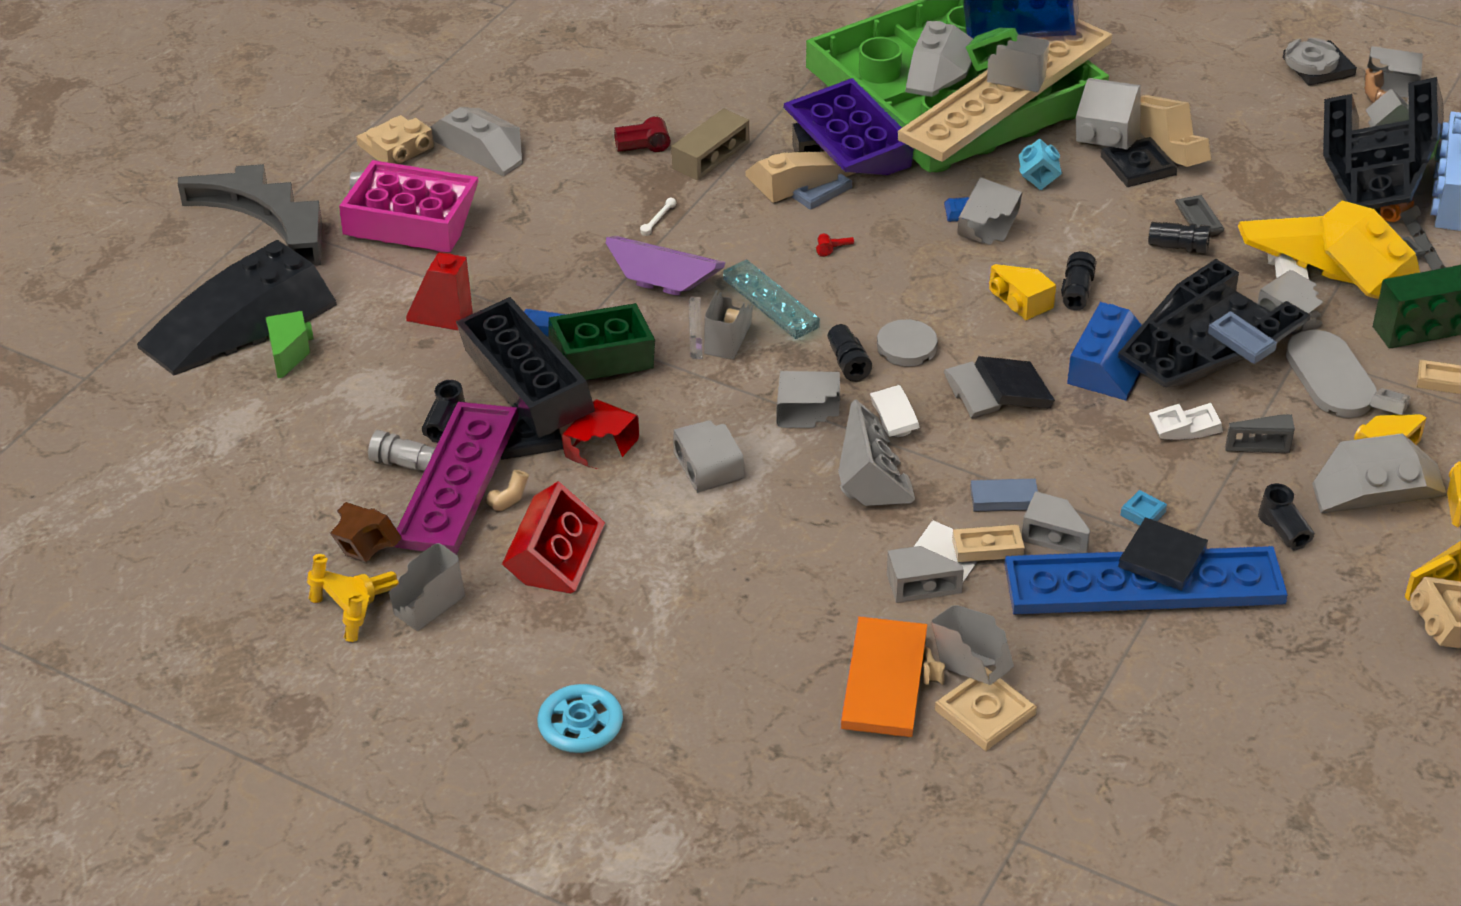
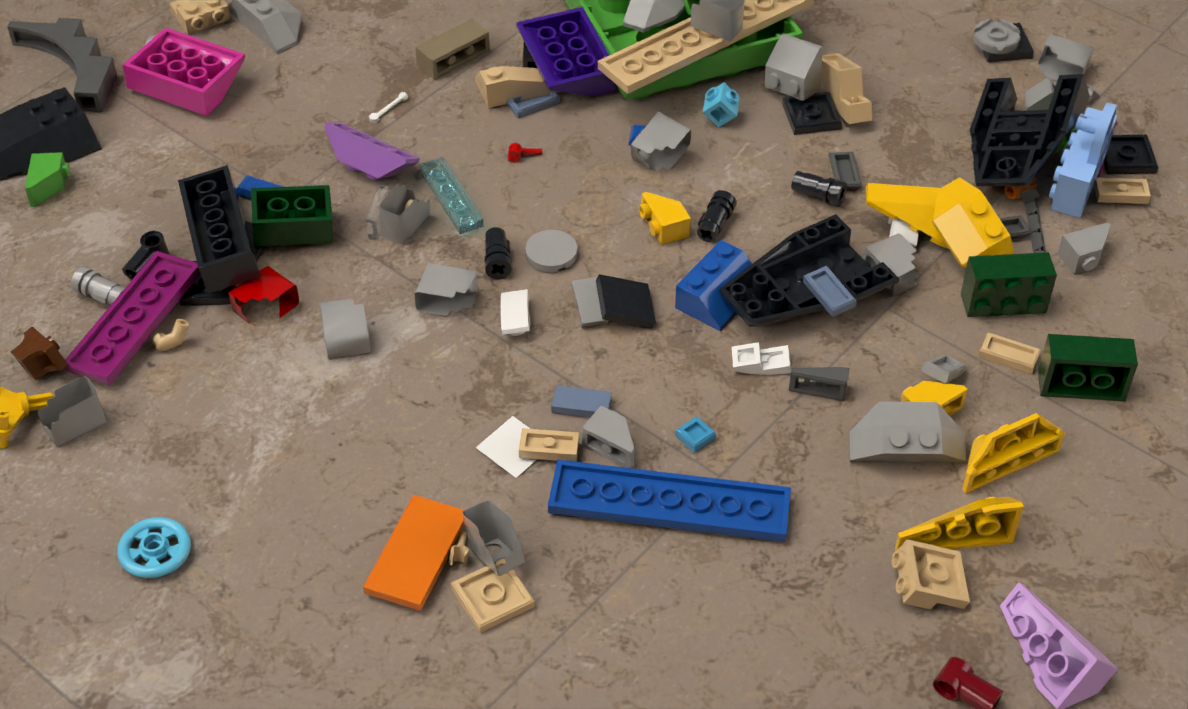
camera: 10 degrees right, 5 degrees up
(443, 293) = (179, 152): red slope -> none
(554, 541) = (191, 386): red slope -> none
(650, 135) = (406, 34): dark red piece -> none
(867, 463) = (477, 357): light grey wedge -> none
(922, 574) = (481, 465): light grey slope -> none
(1163, 553) = (690, 479): black tile -> none
(1281, 514) = (812, 461): black piece -> none
(1330, 373) = (904, 332): light grey tile -> none
(1373, 84) = (1043, 67): medium nougat piece -> none

